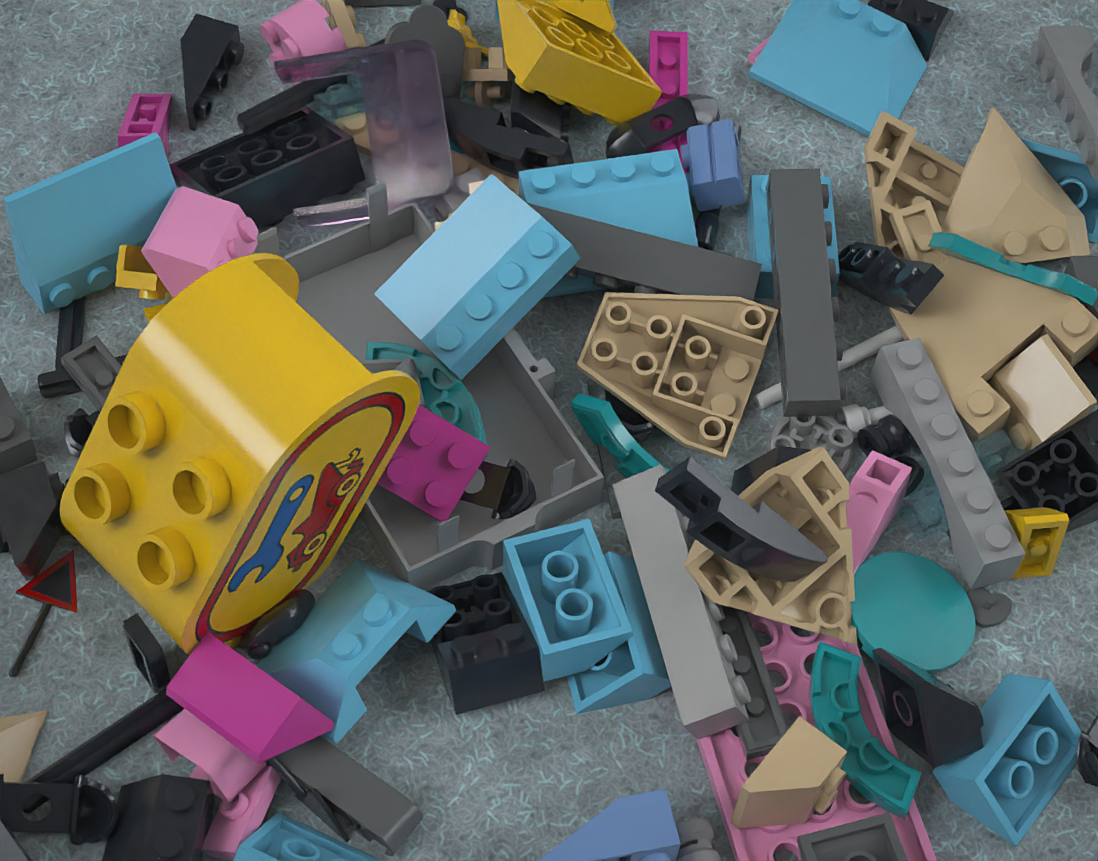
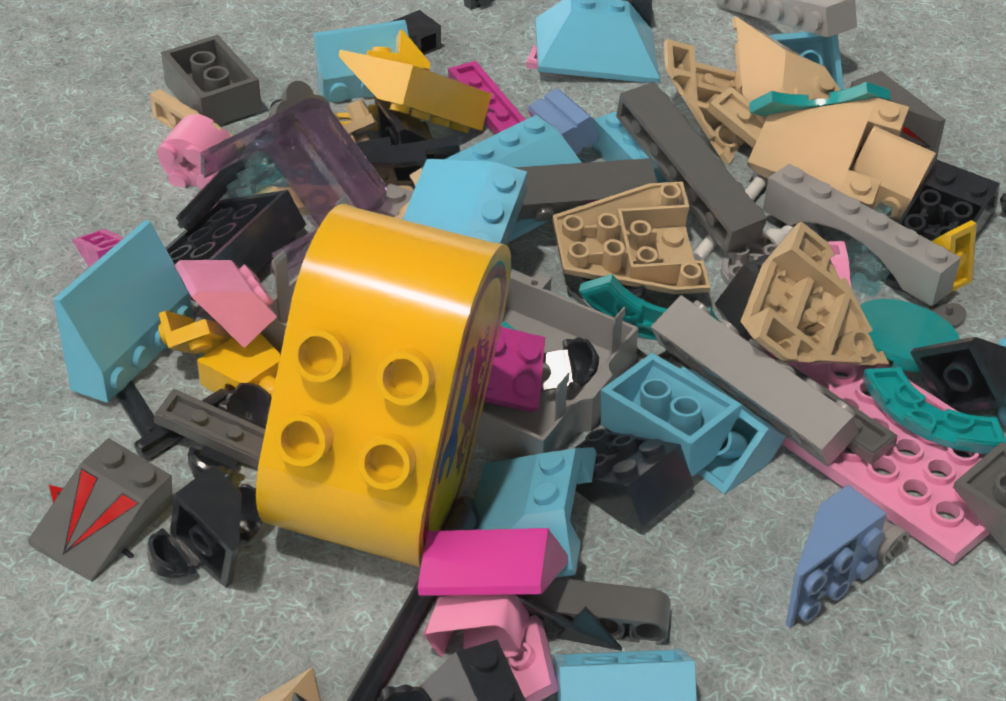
camera: 25 degrees left, 15 degrees down
(53, 588) = (254, 582): piece -> none
(146, 653) = (378, 580): black tile -> none
(207, 55) = (121, 193): black slope -> none
(638, 136) = (515, 100): black piece -> none
(742, 534) = (778, 290): black slope -> none
(791, 780) = (925, 447): tan slope -> none
(885, 277) = (750, 138): black slope -> none

